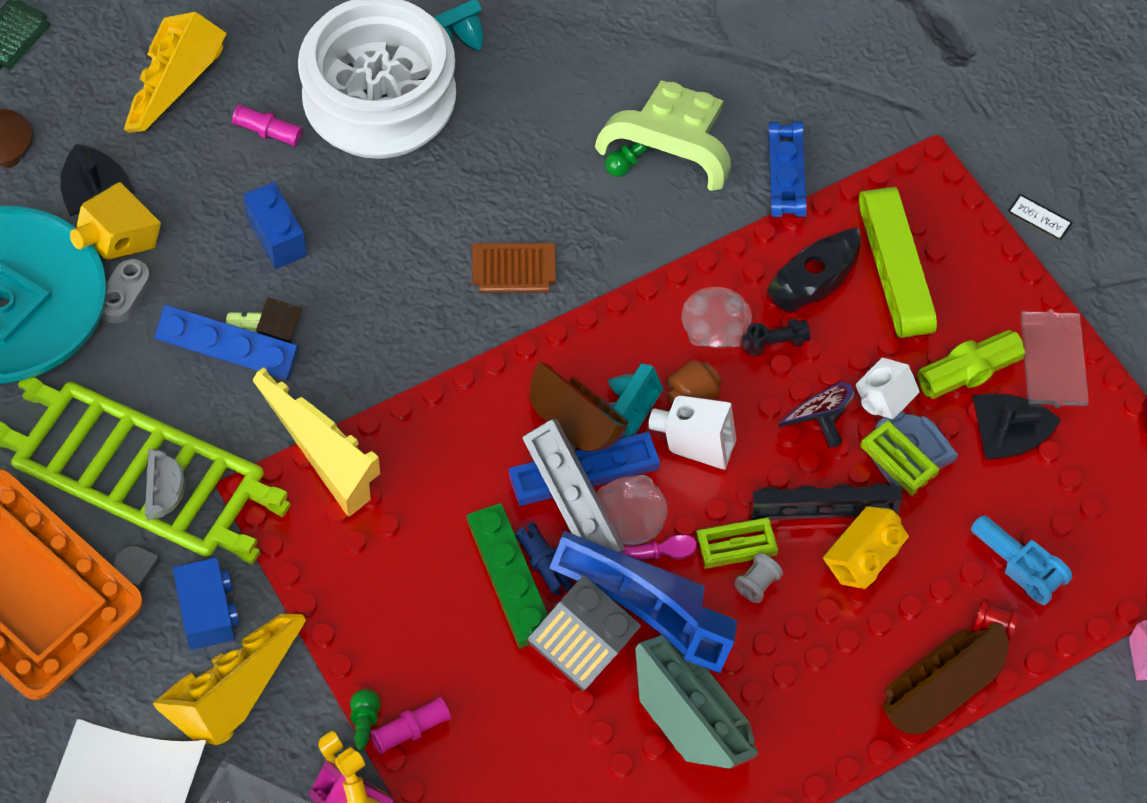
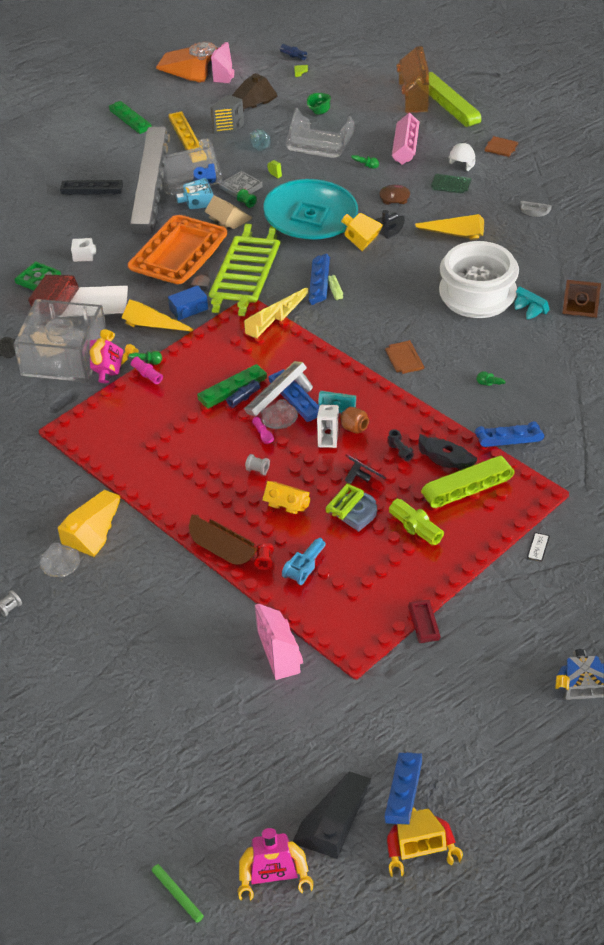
camera: 80 degrees right, 15 degrees down
(126, 289) = (333, 246): light grey plate -> none
(164, 484) = (235, 273): light grey tile -> none
(267, 125) = (441, 253): dark pink pin -> none
(275, 225) = (385, 275): blue brick -> none
(279, 320) = (334, 287): dark brown tile -> none
(581, 413) = (321, 380): reddish brown brick -> none
(583, 633) = (207, 409): dark grey slope -> none
(655, 595) = (230, 429): blue arch -> none
(676, 123) = (511, 385): yellowish green piece -> none
(692, 707) = (182, 452): sand green wedge -> none
(716, 317) = (403, 421): clear dish -> none
(740, 555) = (282, 466): lime tile -> none
(811, 503) = (307, 476): black plate -> none
(887, 388) = (382, 488): white brick -> none
(1011, 424) = (389, 549): black shield -> none
(1054, 358) = (439, 559): clear piece -> none

